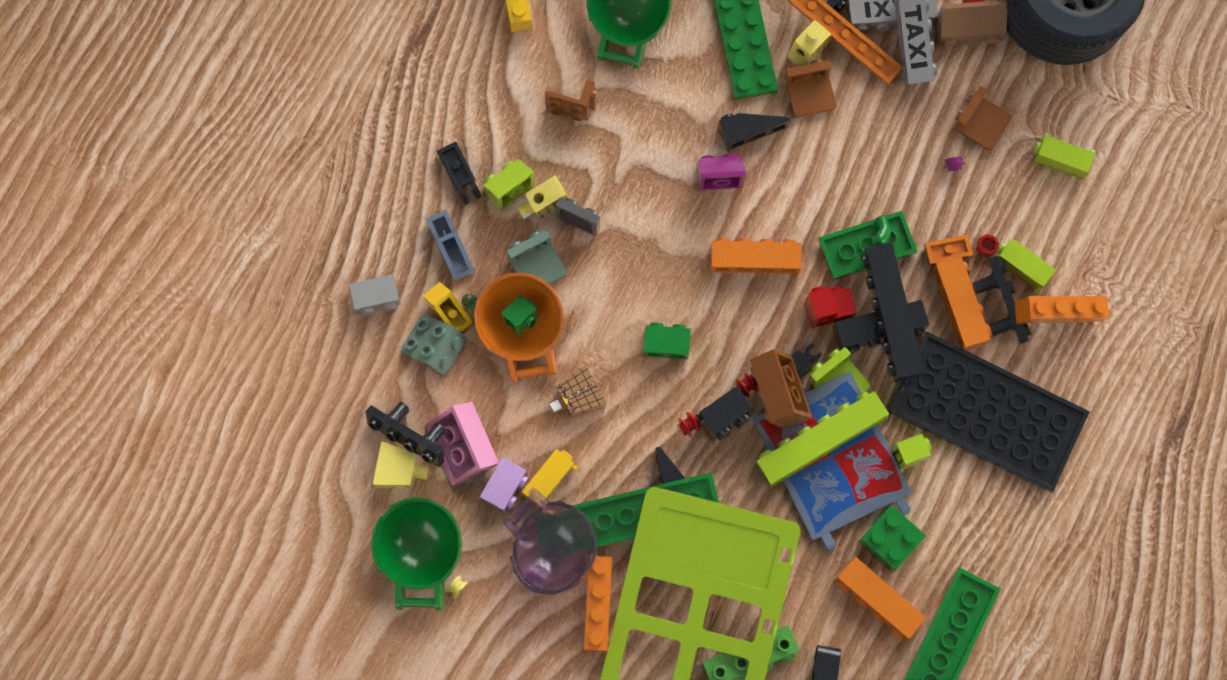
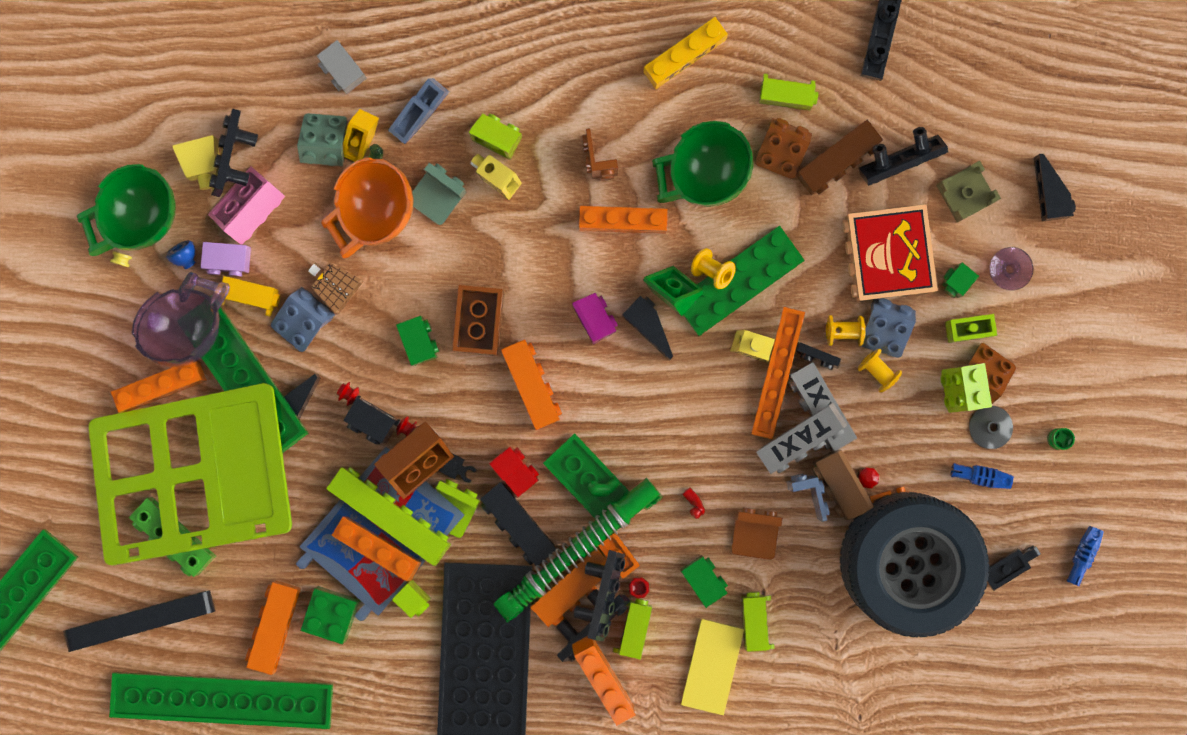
camera: 70 degrees right, 10 degrees up
(458, 170) = (489, 86): black hinge -> none
(480, 524) = (182, 254): none -> blue brick
(520, 315) = (378, 202): green brick -> none
(582, 218) = (493, 203): dark grey plate -> none
(596, 441) = (301, 319): none -> sand blue bracket
(640, 107) = (623, 219): none -> orange brick
(674, 276) = (478, 320): none -> dark orange brick
(723, 47) = (719, 272): none -> yellow hose
(726, 90) = (674, 288): none -> green slope
(810, 88) = (712, 365): dark orange bracket -> none
(849, 462) = (376, 548): none -> orange brick
(893, 312) = (529, 529): black brick -> none
(928, 272) = (617, 516): none -> green piece
(937, 160) = (695, 501): none -> red arm
(954, 163) = (703, 525): magenta plate -> none
(970, 49) = (802, 482): none -> sand blue bracket
(978, 260) = (608, 588): none -> black plate
(1006, 184) = (704, 581): none -> green brick
(1088, 214) = (712, 666): none -> light yellow tile

